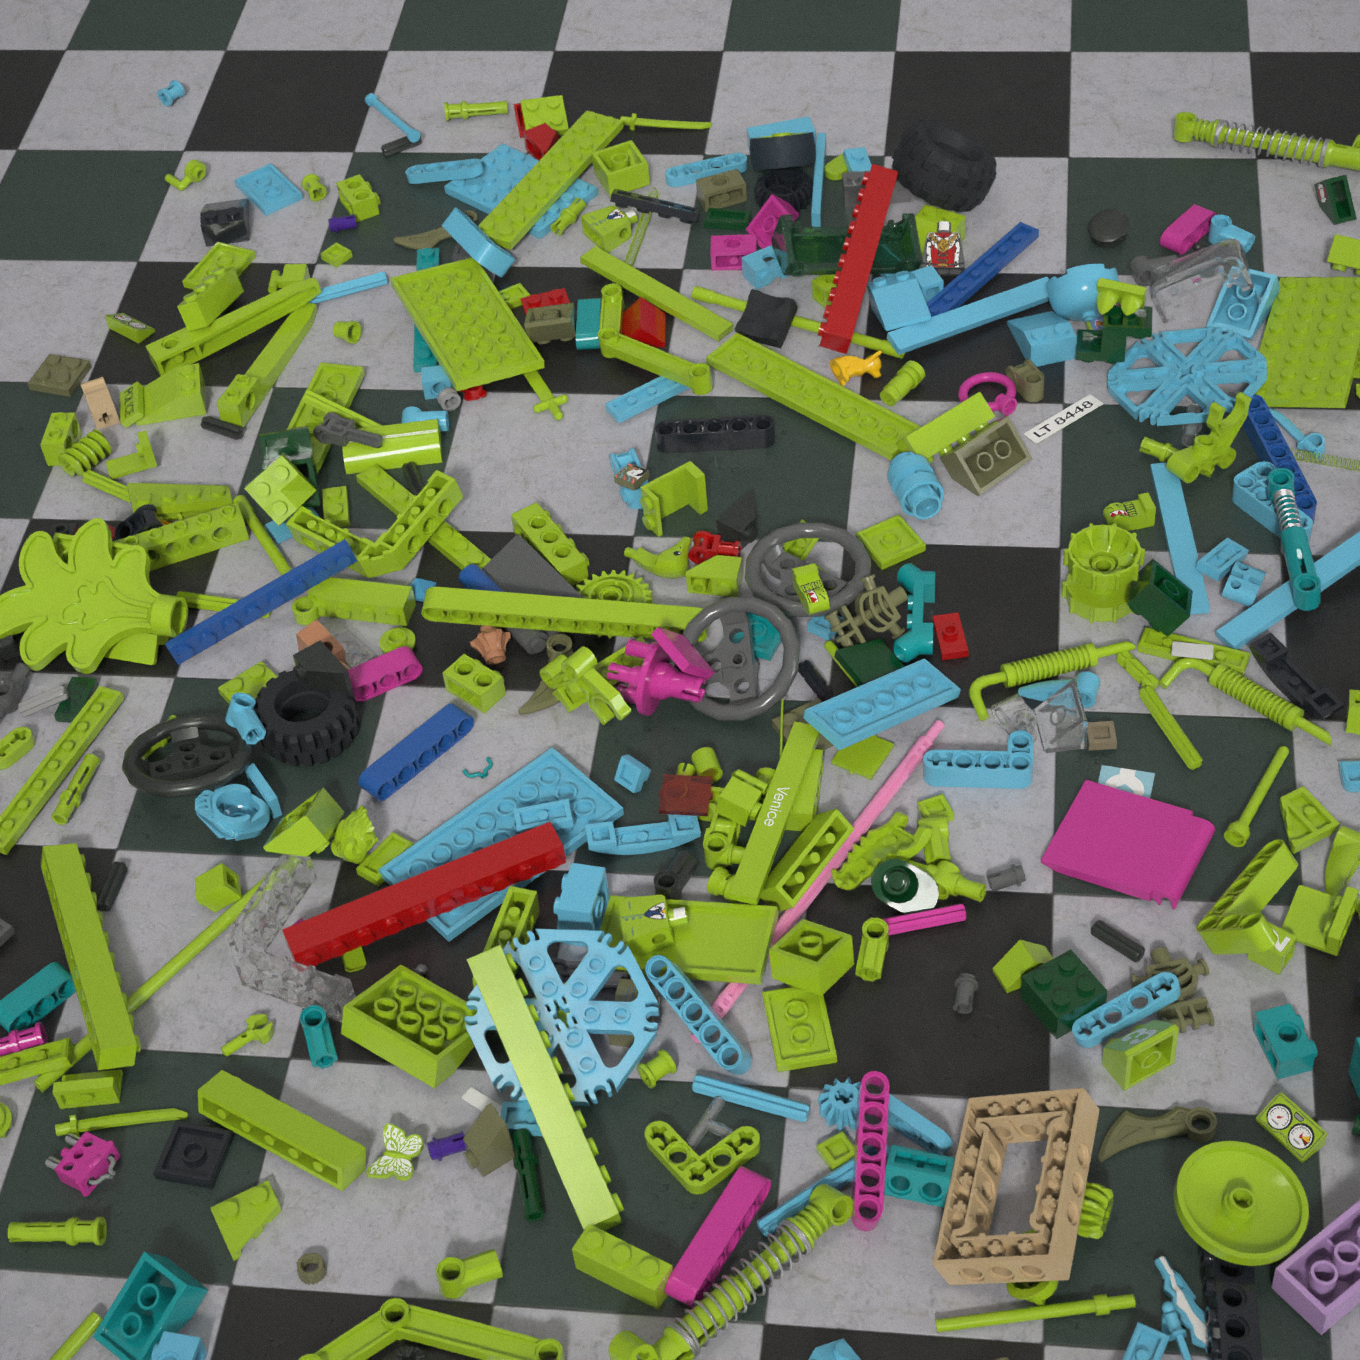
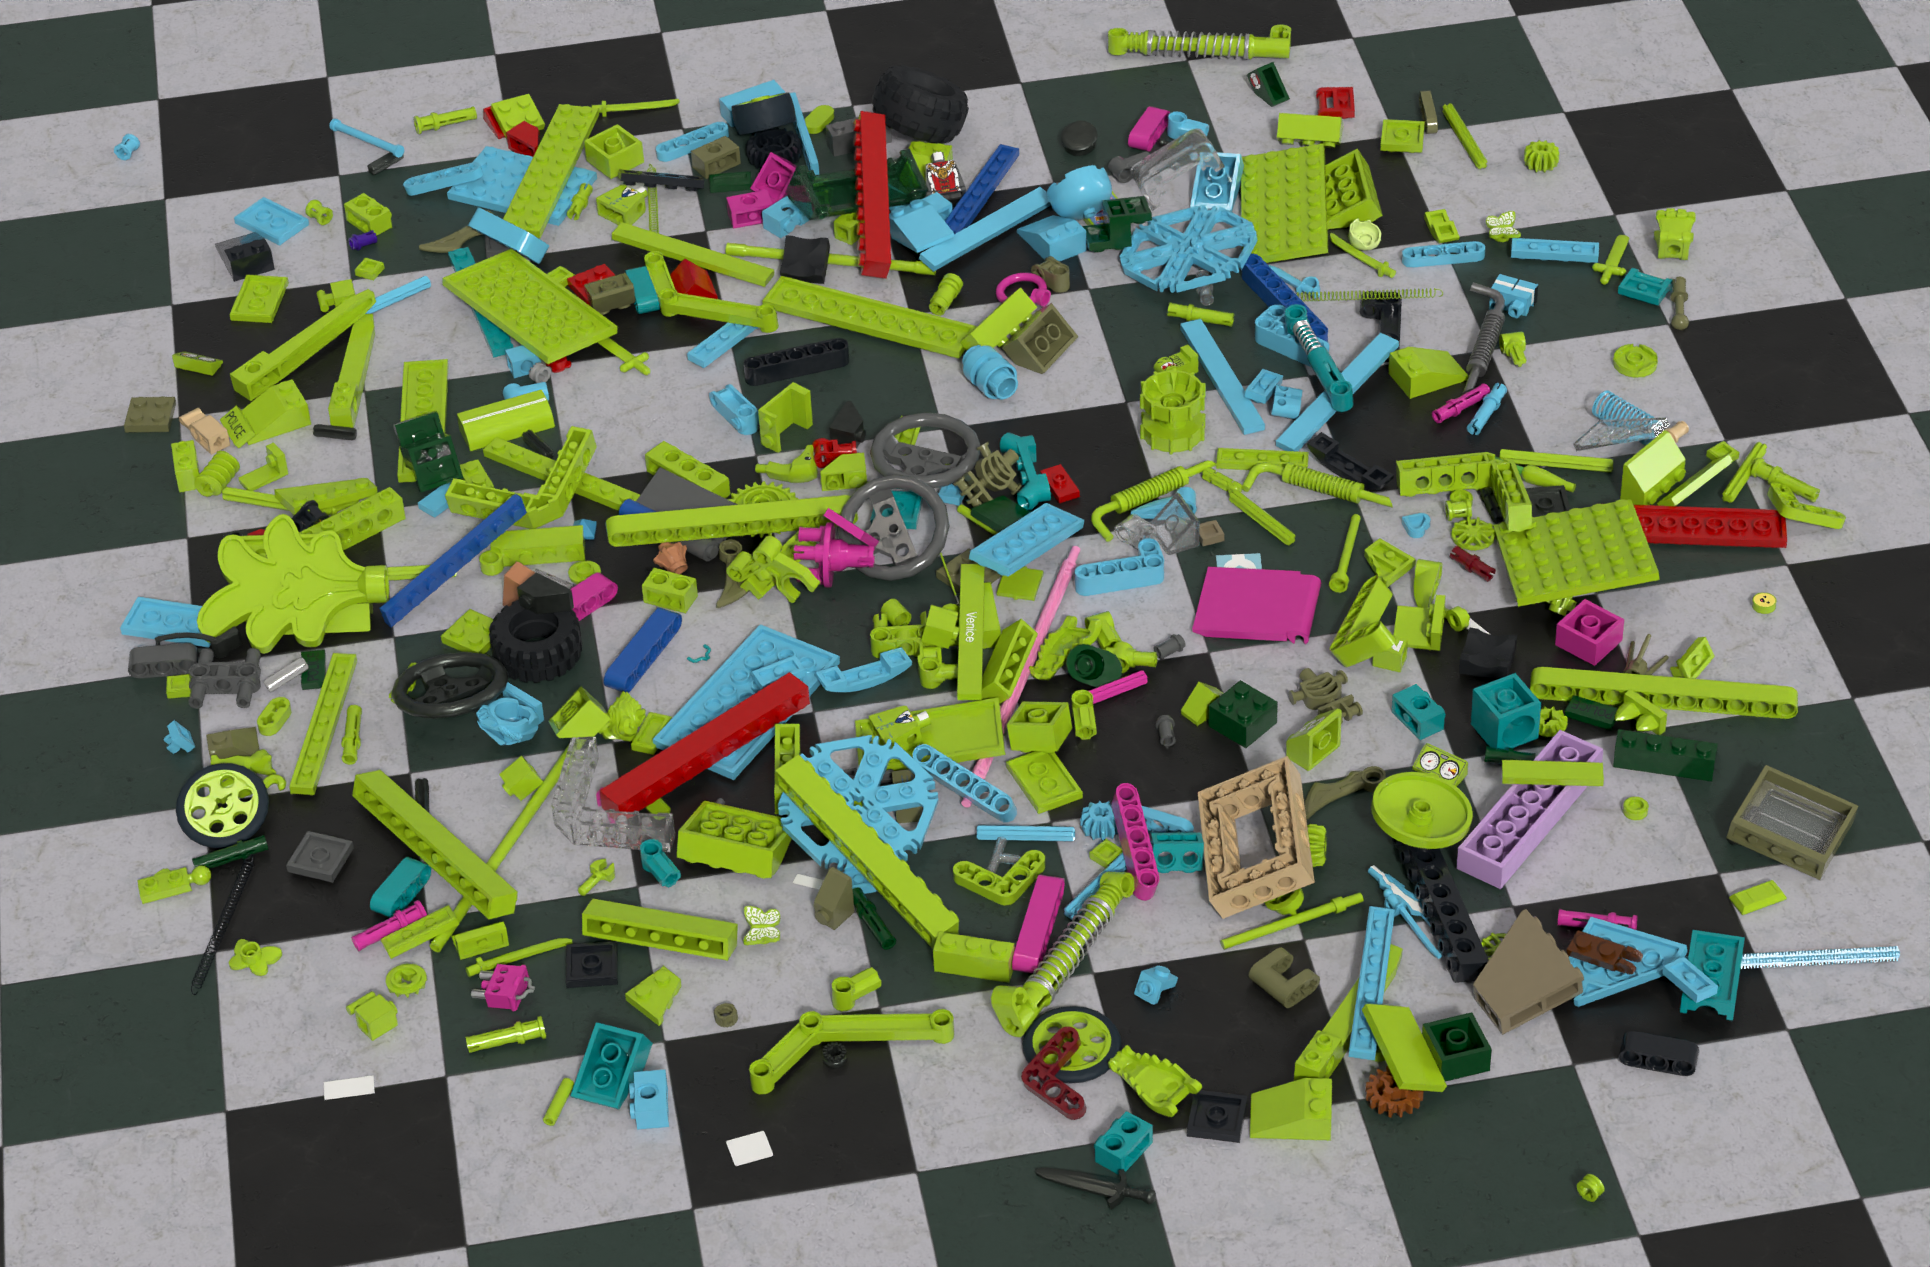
camera: 20 degrees left, 5 degrees down
(194, 172) = (190, 216): lime plate -> none
(210, 298) = (275, 322): lime brick -> none
(243, 717) = (488, 645): medium azure piece -> none
(262, 535) = (426, 517): lime piece -> none
(280, 489) = (430, 466): lime slope -> none
(327, 405) = (443, 398): lime axle -> none
(342, 431) = (460, 412): dark grey connector -> none
(347, 331) = (415, 332): lime piece -> none
(446, 1146) = (793, 916): dark purple pin -> none
(582, 899) = (838, 724): medium azure brick -> none
(631, 476) = (741, 405): olive tile -> none
(631, 773) = (835, 631): medium azure tile -> none
(656, 1068) = (940, 832): lime bush -> none
(675, 876) = (904, 692): pearl dark grey piece -> none
(685, 795) = (891, 634): clear red piece -> none
(720, 883) = (945, 694): lime wheel -> none
(810, 589) = (938, 463): lime leg -> none
(815, 680) = (962, 537): black axle -> none
(851, 366) = (893, 288): yellow animal -> none
(857, 159) = (831, 112): medium azure plate -> none
(891, 542) = (985, 420): lime tile -> none
(935, 807) = (1093, 607): lime tile -> none
(1063, 418) = (1093, 301): white sticker -> none
(1117, 941) = (1271, 672): pearl dark grey axle -> none
(1123, 1005) = (1297, 716): medium azure beam -> none
(1128, 295) = (1108, 188): lime tile -> none
(1160, 598) = (1226, 421): dark green brick -> none
(1192, 650) = (1262, 457): white sticker -> none
(1211, 448) = (1231, 300): lime piece -> none

